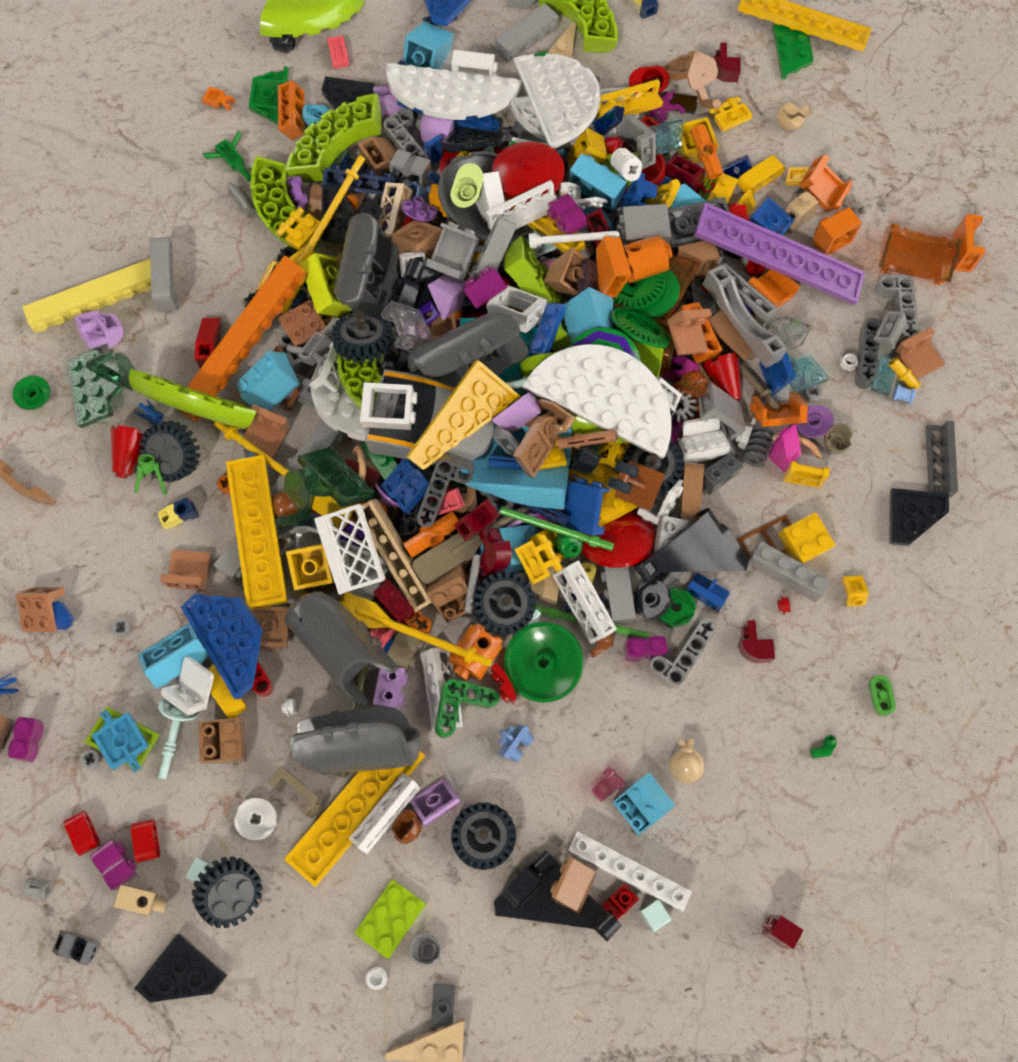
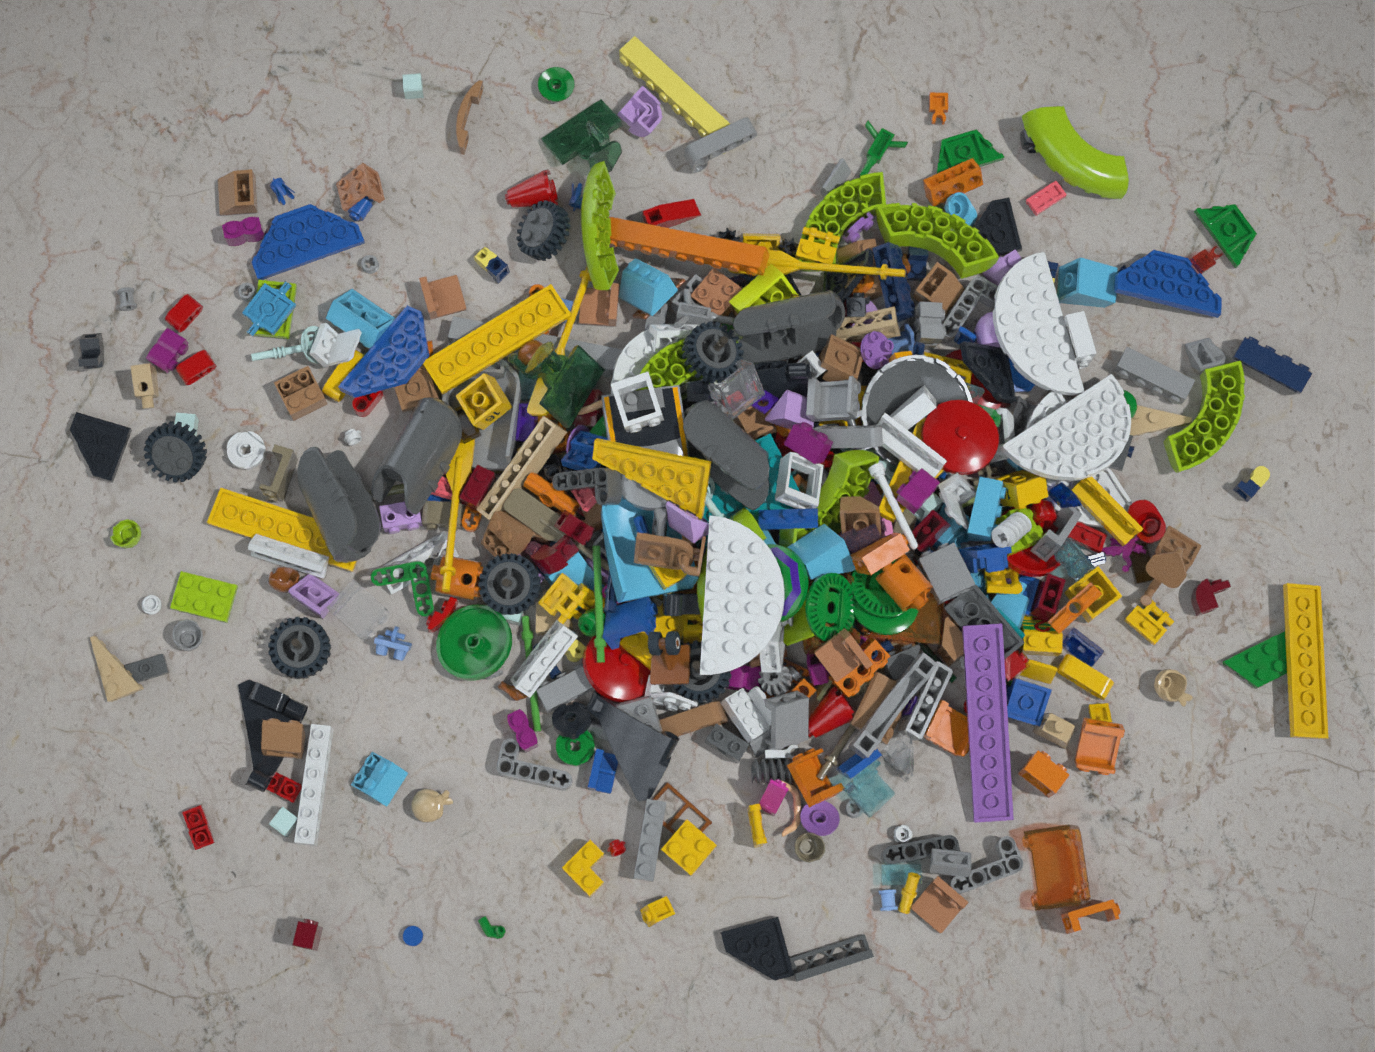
camera: 65 degrees right, 5 degrees up
(63, 682) = (303, 238): none -> blue plate
(146, 466) = (519, 218): bright green plant -> none
(290, 978) = (126, 534): none -> lime hair
(334, 550) = (498, 418): white fence -> none
(467, 185) = (908, 384): yellowish green piece -> none
(472, 584) = (516, 548): light grey bar -> none
(580, 440) = (685, 590): nougat pin -> none
(611, 781) = (387, 742): clear pink plate -> none
(629, 1010) = (198, 827): none -> red slope
(694, 383) = (800, 682): clear orange head -> none
(755, 650) = (561, 831): dark red brick -> none
(792, 641) = (580, 866): none -> yellow brick
(808, 826) = (413, 936): none -> blue tile
(884, 695) = (561, 967): bright green plate -> none

